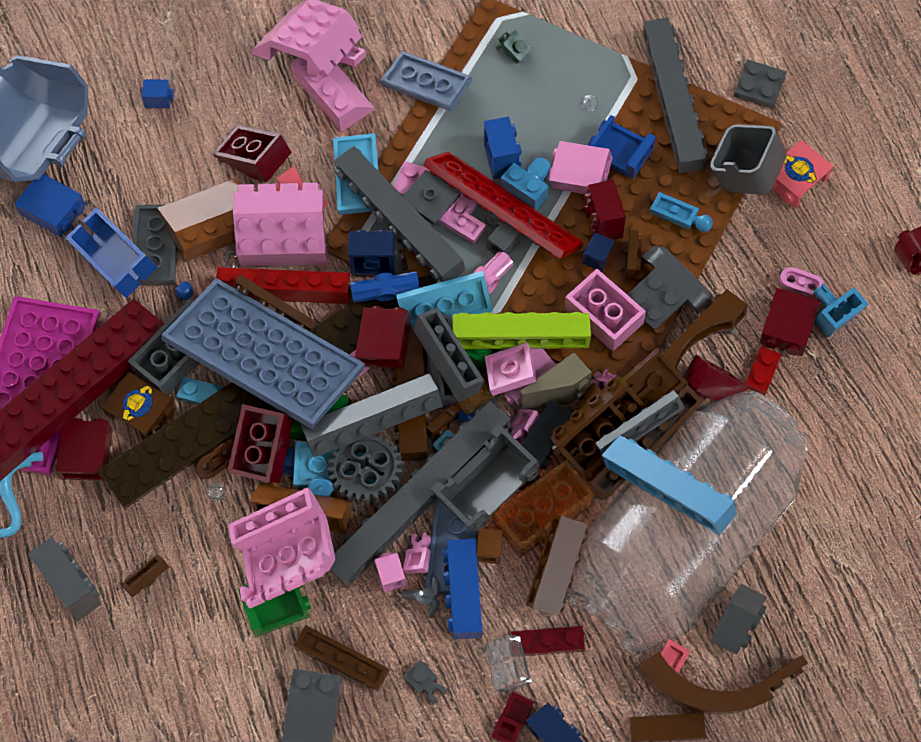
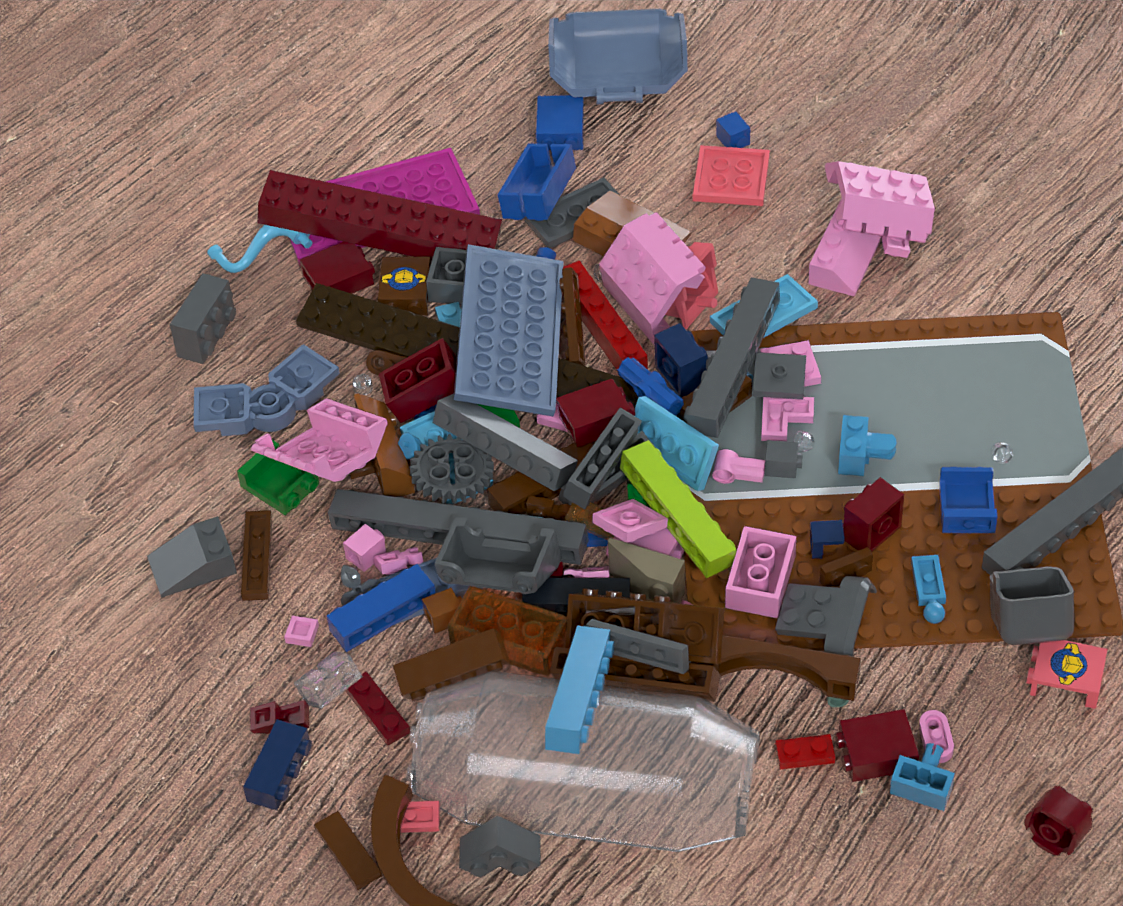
camera: 60 degrees right, 15 degrees down
(145, 576) = (244, 375): reddish brown plate -> none
(186, 546) = (271, 407): none -> sand blue plate
(199, 120) = (731, 175): none -> coral plate
(253, 152) = (728, 229): dark red slope -> none
(422, 679) = (273, 630): dark grey plate -> none
(426, 81) = (915, 313): sand blue tile -> none
(441, 660) = (301, 631): none -> bright pink plate
(501, 145) = (881, 398): blue brick -> none
(503, 204) = (817, 435): red plate -> none
(514, 45) = (1014, 359): bracket -> none
(578, 166) = (912, 473): bright pink brick -> none
(711, 380) = (751, 701): dark red slope -> none

